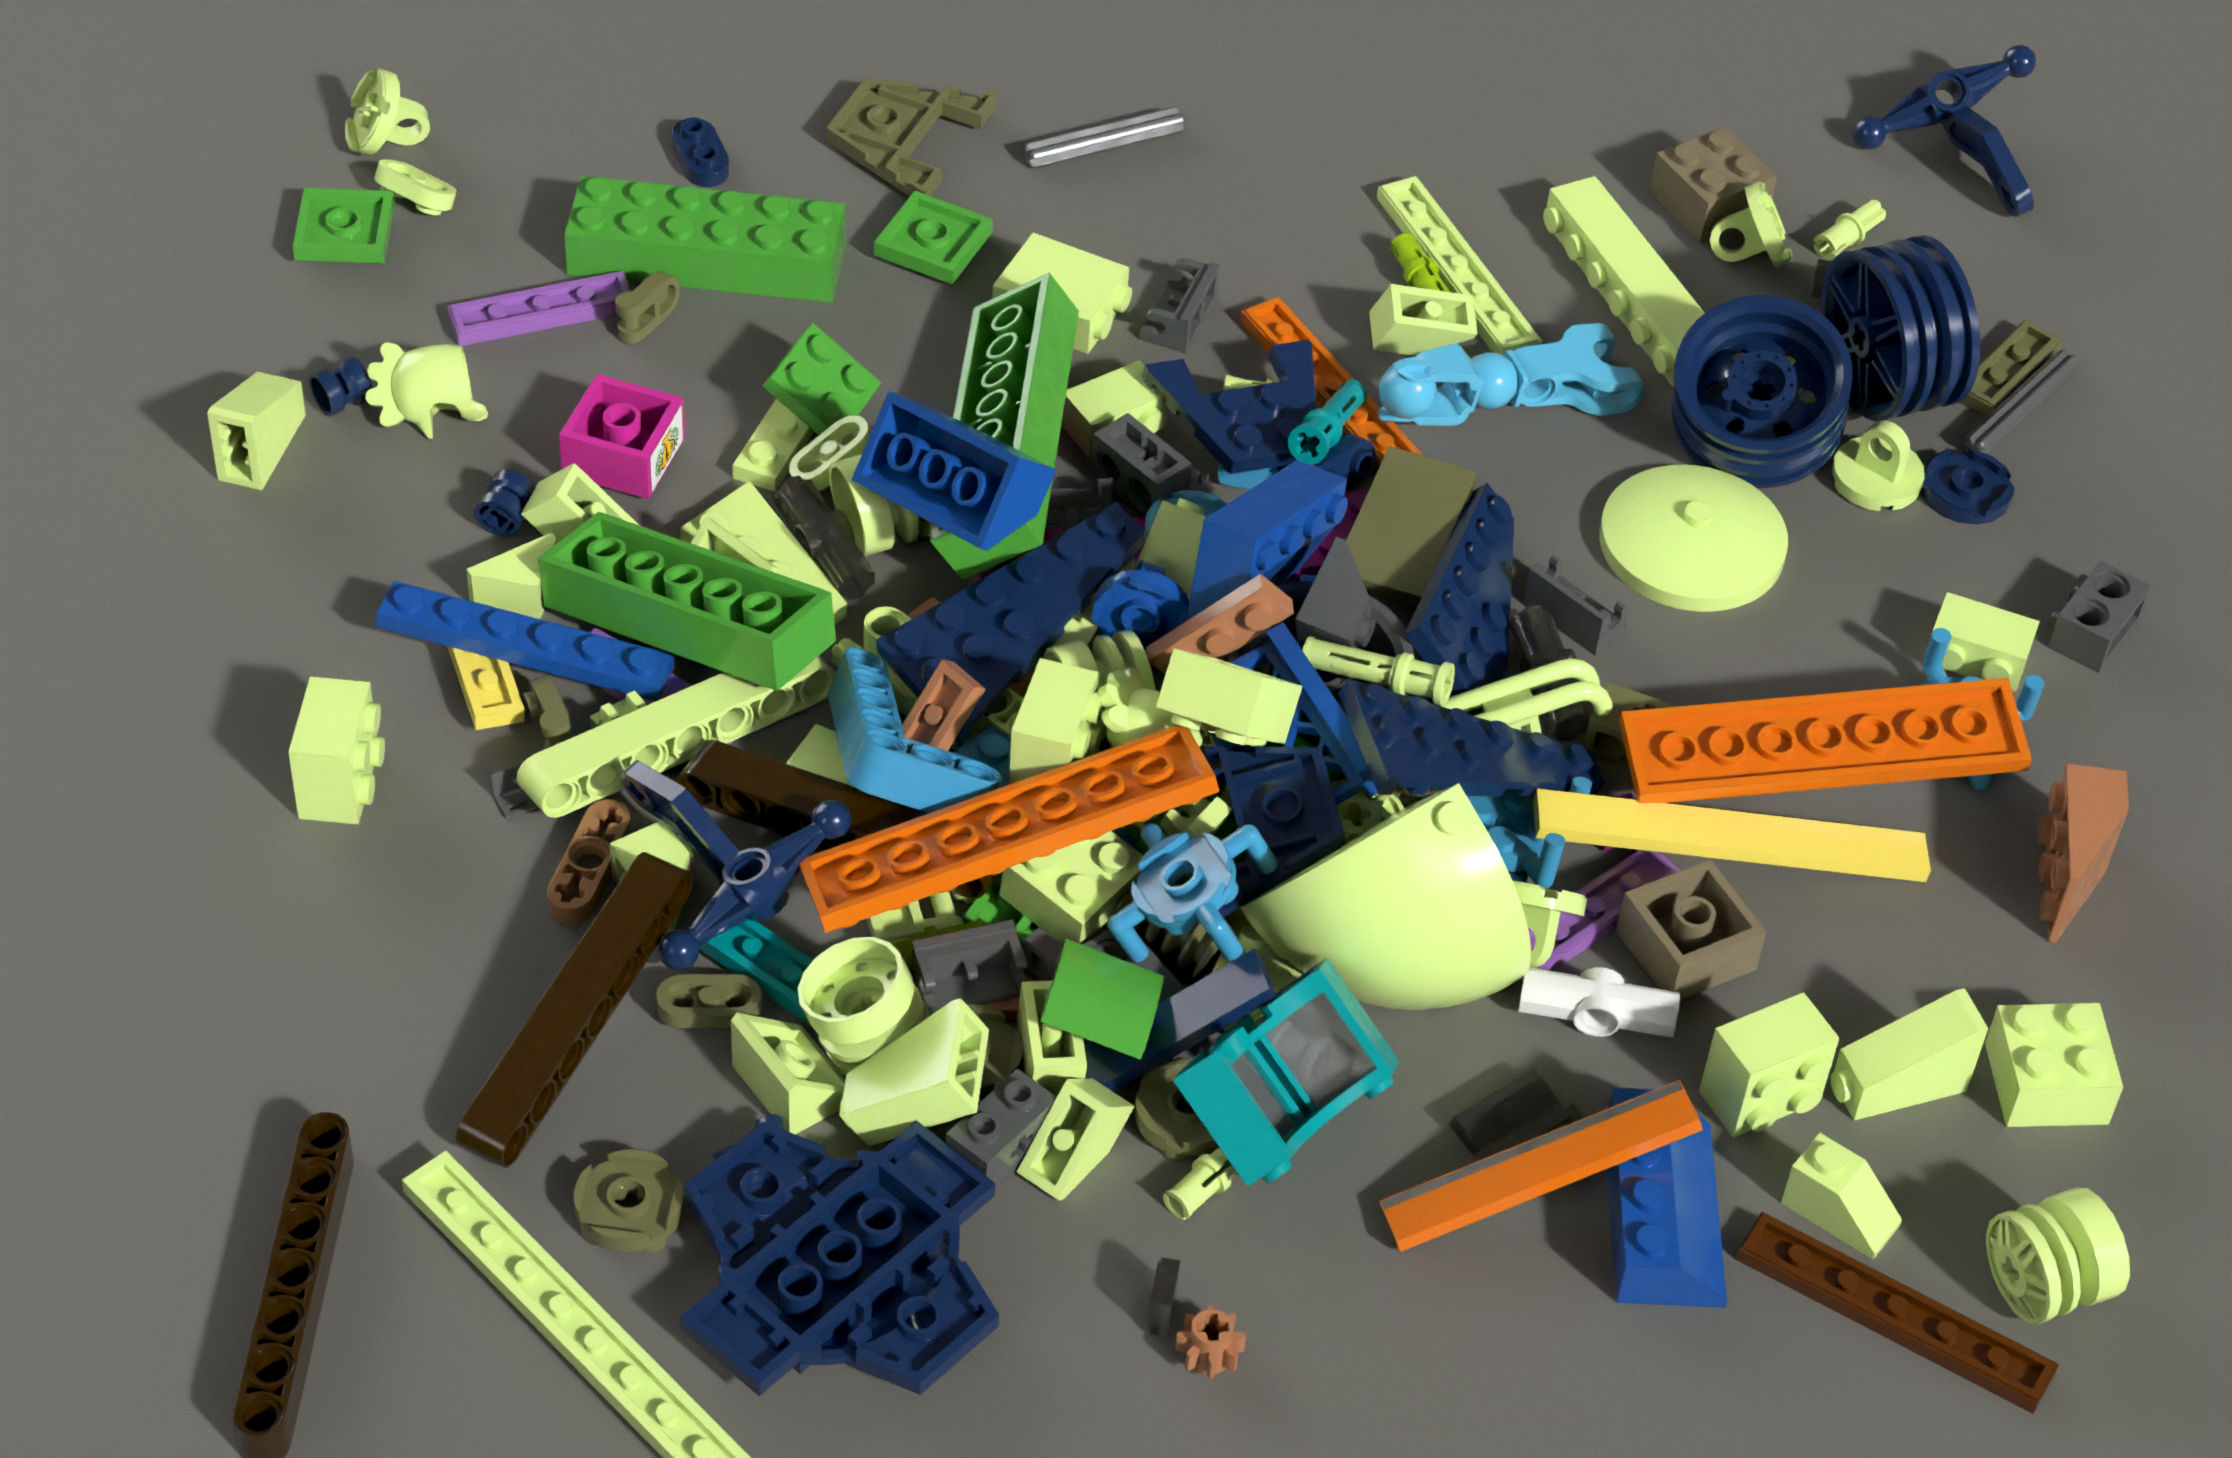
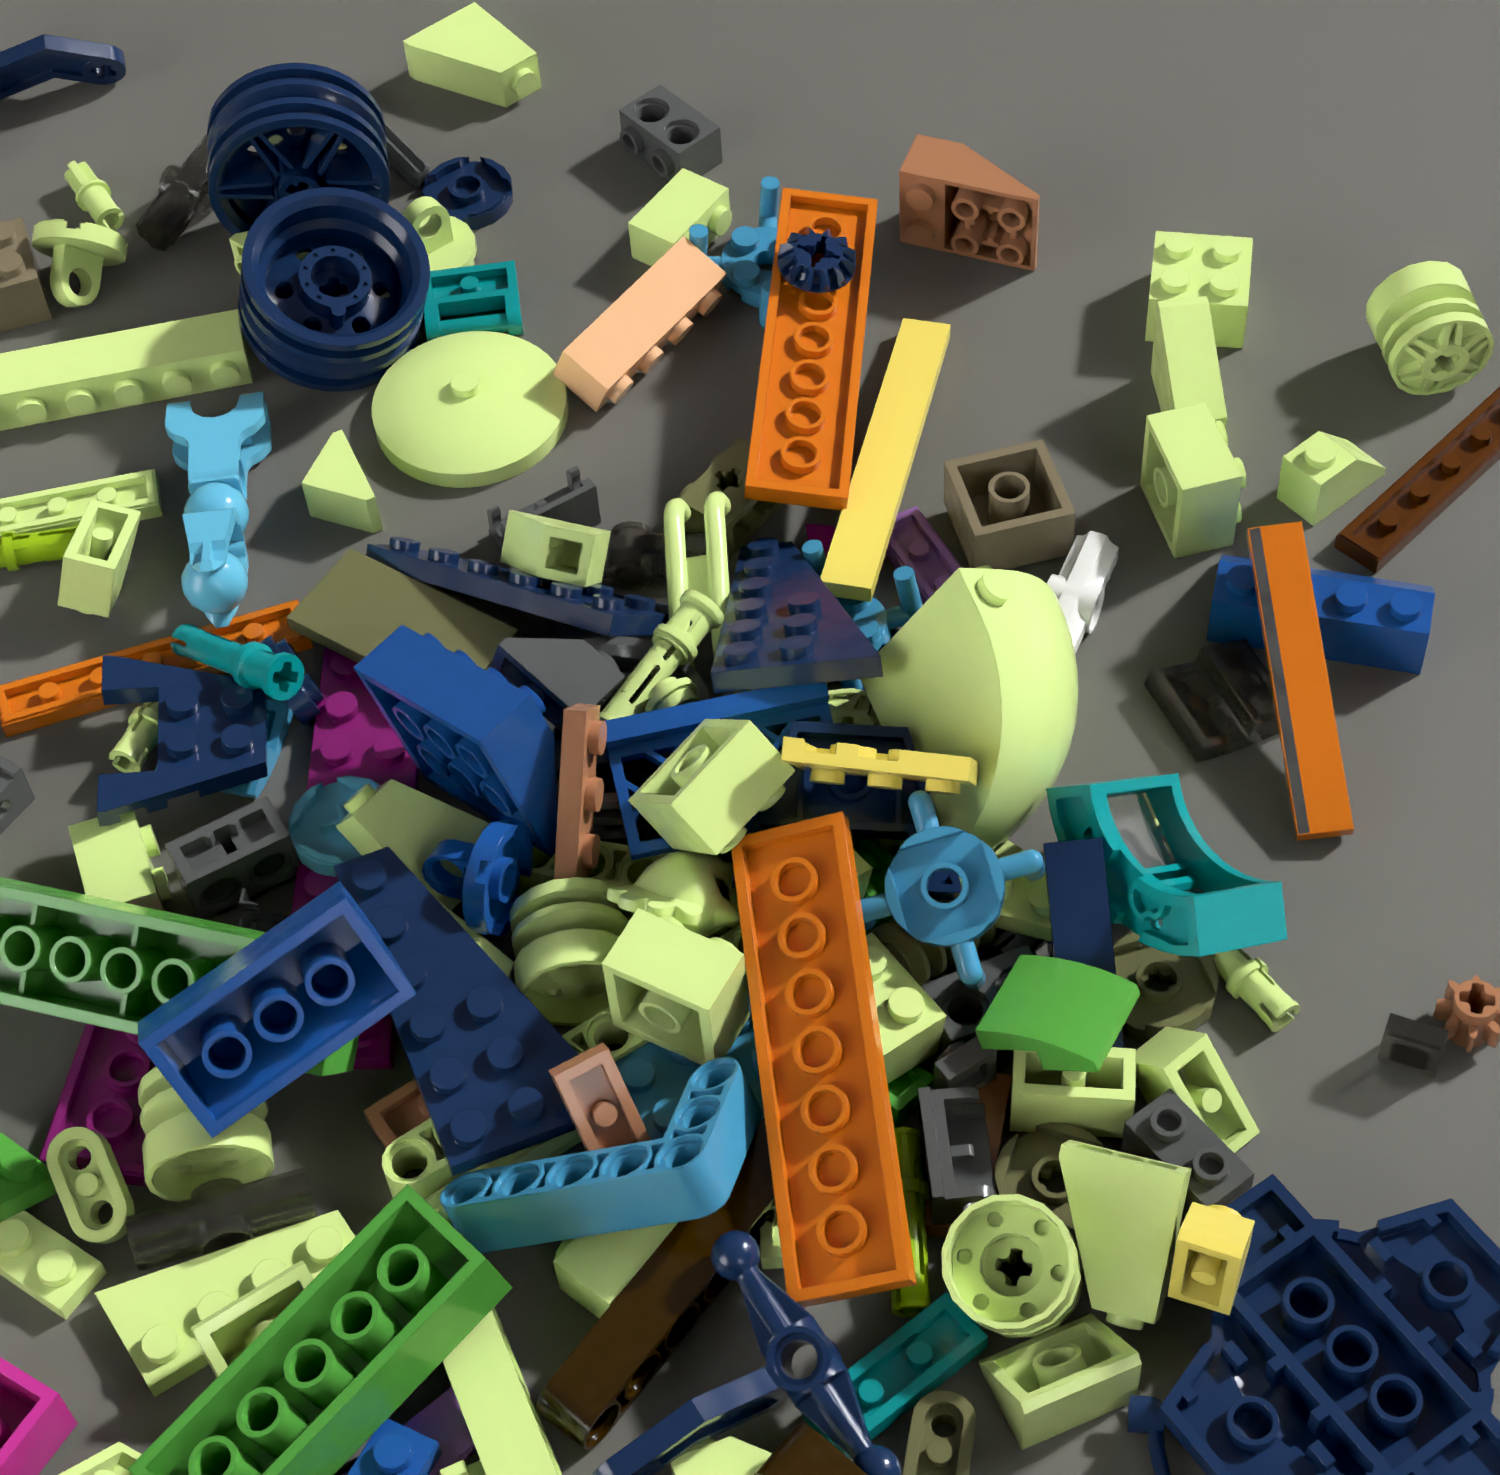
camera: 70 degrees left, 5 degrees up
(890, 1118) = (1210, 1257): none -> light yellow slope
(1271, 788) = (886, 771): none -> light yellow wing
(1336, 674) = (671, 693): none -> yellowish green plate
(1508, 602) = (555, 549): none -> yellowish green slope
(1565, 461) = (338, 488): none -> yellowish green slope
(1827, 629) = (640, 324): none -> light nougat brick
(1830, 503) = (473, 291): none -> teal plate
(1898, 722) = (829, 274): none -> dark blue gear
(2147, 451) = (474, 58): none -> yellowish green slope

